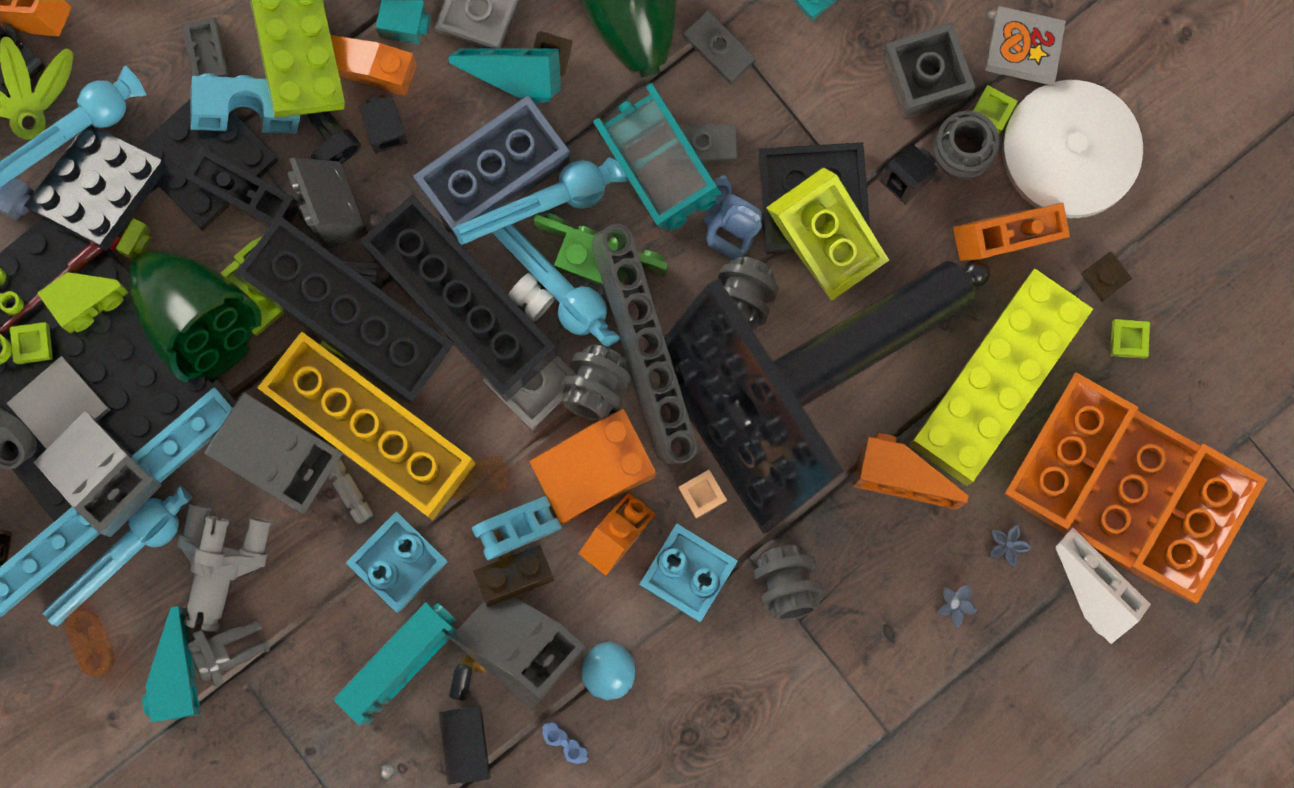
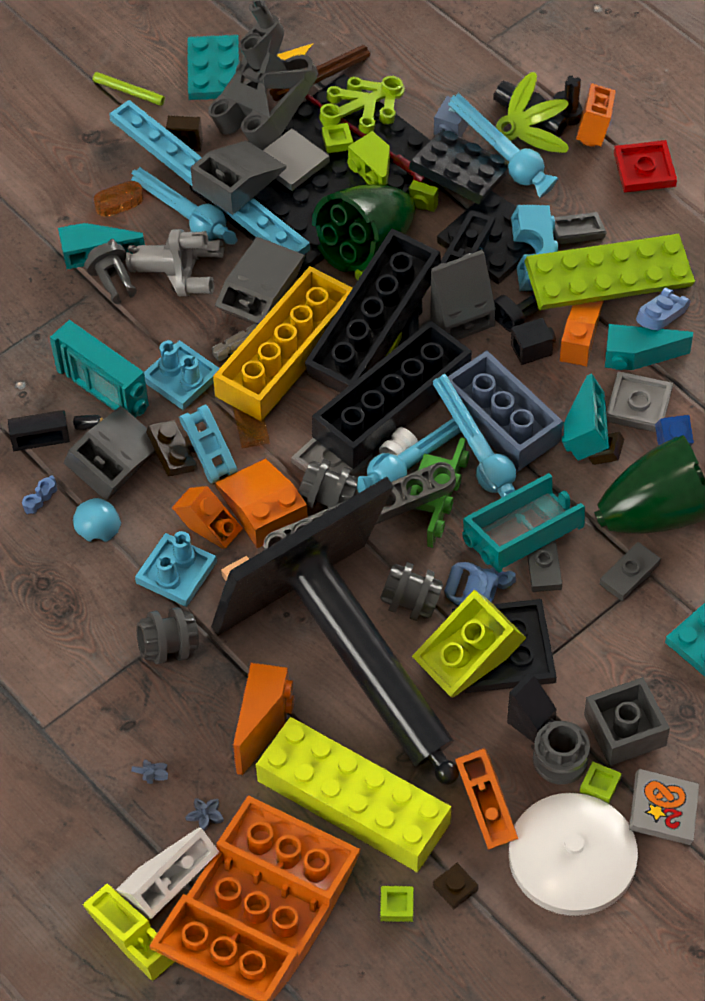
camera: 90 degrees right, 25 degrees down
(1152, 634) = (127, 930): none -> neon yellow slope

